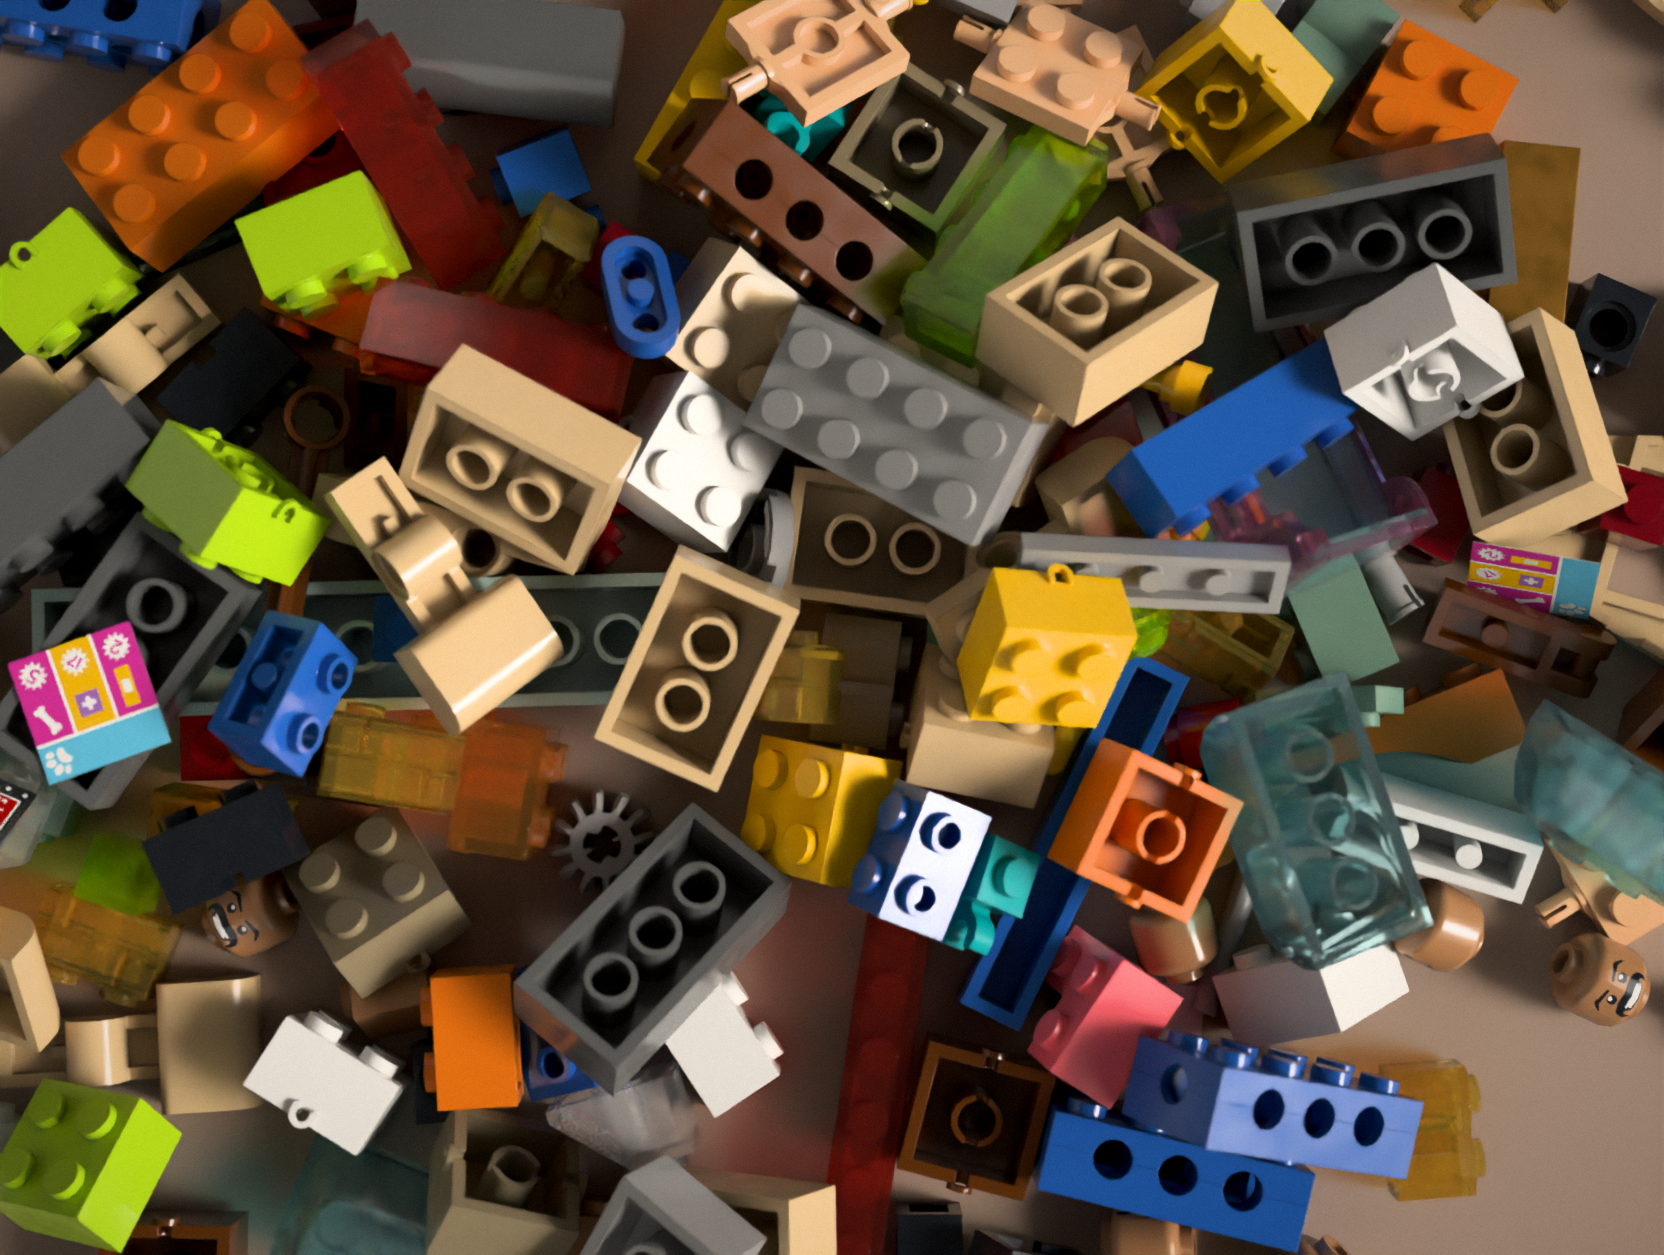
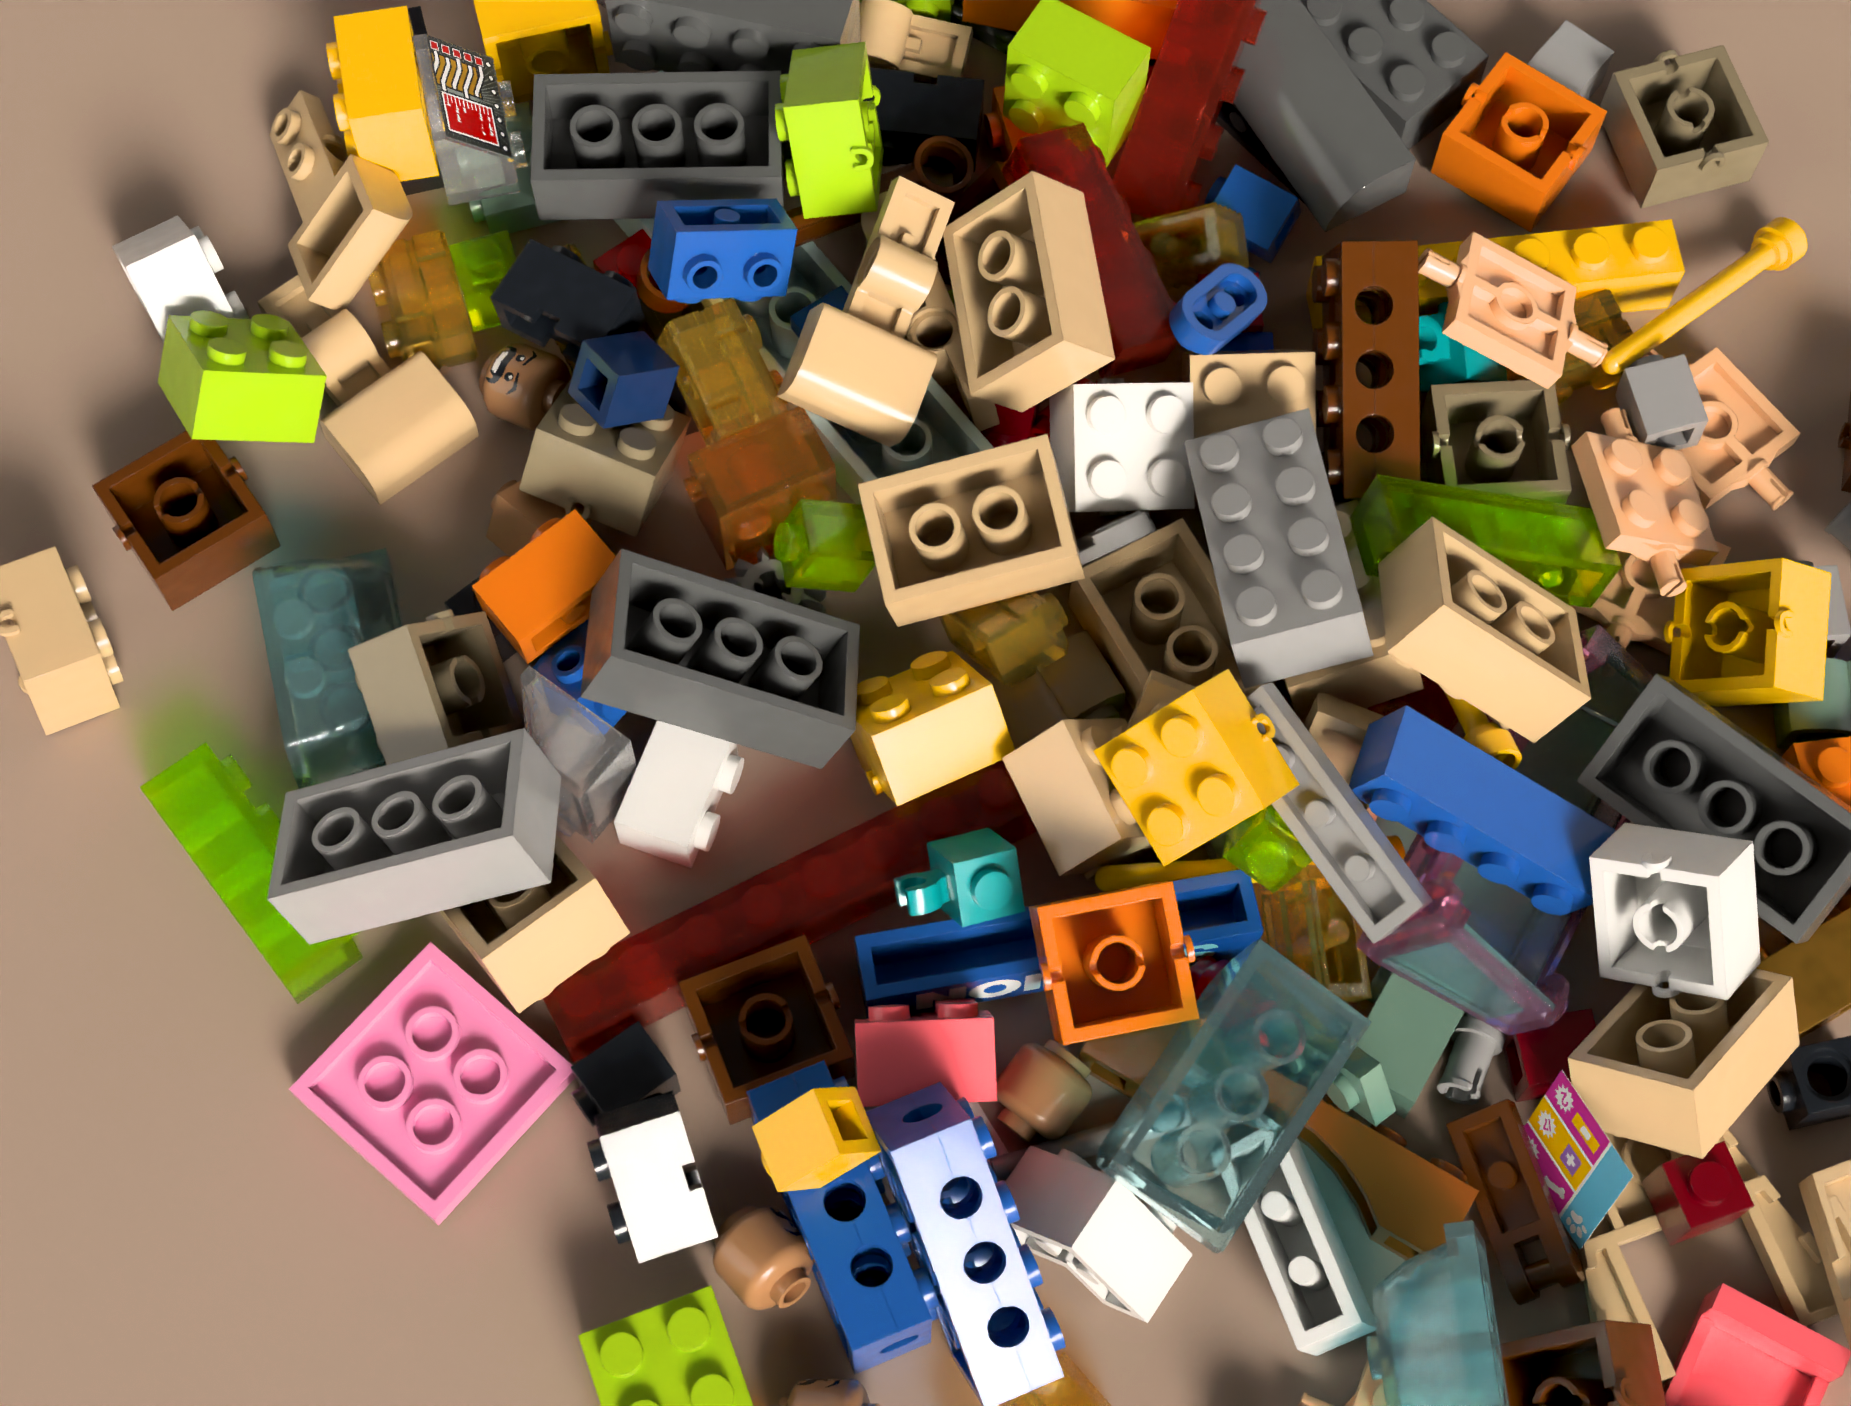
camera: 50 degrees right, 20 degrees down
(89, 702) = (612, 129): sticker -> none
(332, 1077) = (436, 514): white brick -> none
(336, 853) = (623, 379): none -> dark blue brick
(599, 784) = (824, 546): none -> clear neon green brick
(918, 859) = (949, 810): brick -> none
(1131, 1177) = (815, 1138): none -> yellow brick
(1455, 932) = (1221, 1304): medium nougat head -> none

